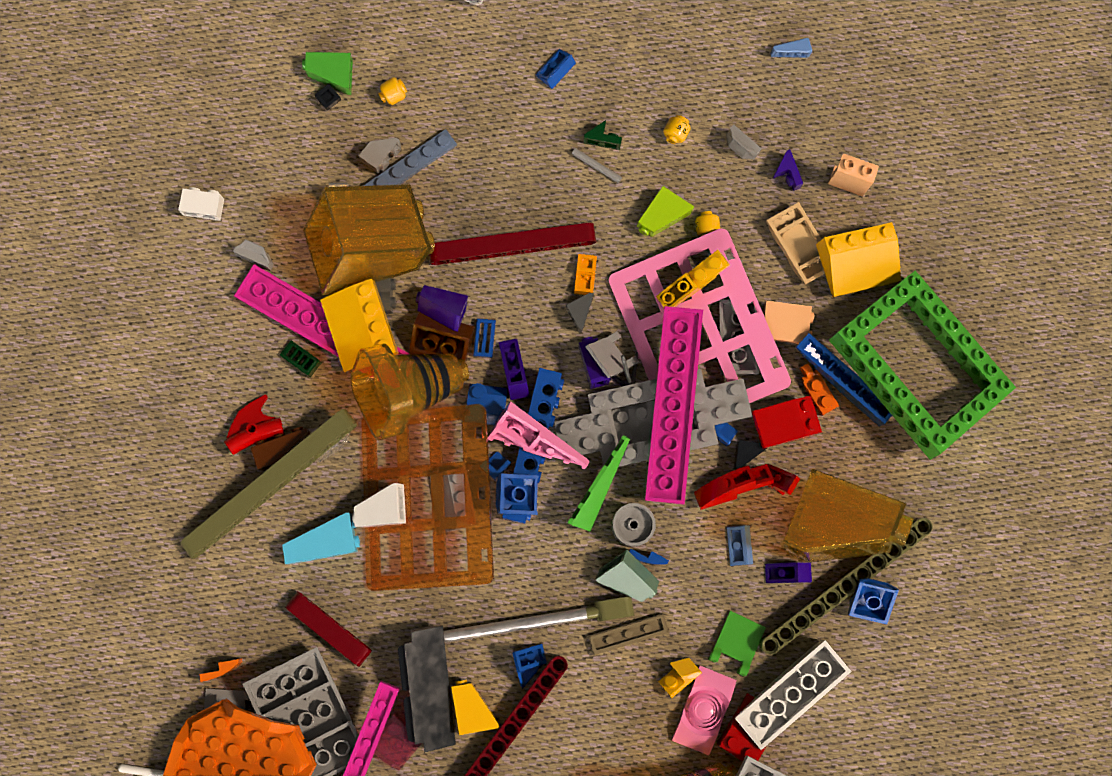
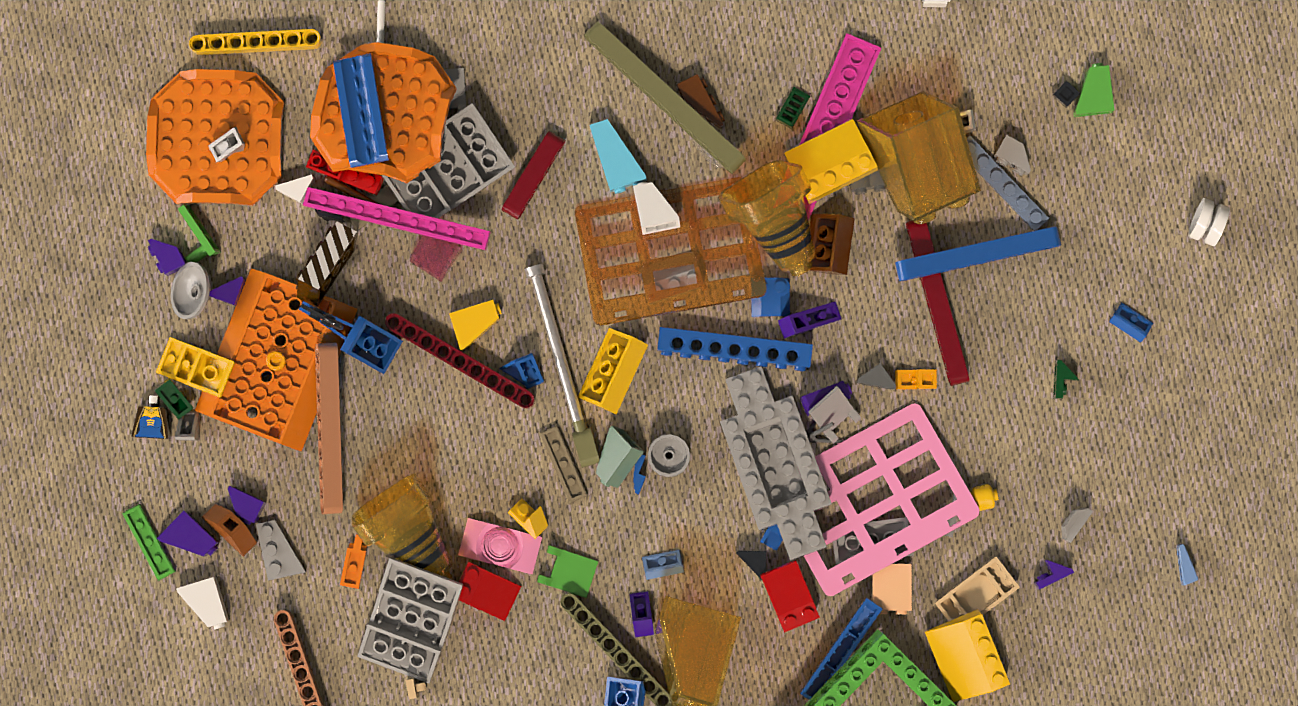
camera: 95 degrees right, 5 degrees up
(224, 668) = (485, 83): orange slope -> none
(252, 426) = (725, 69): red pin -> none
(254, 253) = (891, 47): light grey slope -> none
(392, 91) = (1081, 159): yellow head -> none
(426, 678) = (498, 275): black slope -> none
(442, 306) = (862, 240): dark purple slope -> none
(471, 199) = (978, 253): none -> blue beam
(482, 353) = (837, 294): blue tile -> none
(497, 465) = (711, 316): blue panel -> none
(516, 494) = (683, 337): blue slope -> none
(522, 430) = (747, 334): bright pink wedge -> none
(540, 571) = (612, 370): none -> yellow slope
(589, 507) = (684, 412): bright green wedge -> none
(596, 165) = (1032, 377): light grey bar -> none
(663, 212) = (990, 450): lime slope -> none
(674, 405) = (791, 480): dark pink plate -> none
(677, 129) = (1080, 454): yellow head -> none
(694, 280) = (919, 486): yellow slope -> none
(731, 484) = (722, 550): red slope -> none
(783, 480) = (732, 595): red slope -> none
(792, 693) = (525, 627): white slope -> none
(818, 390) = (827, 627): orange hinge -> none
(853, 175) = (1054, 639): light nougat panel -> none

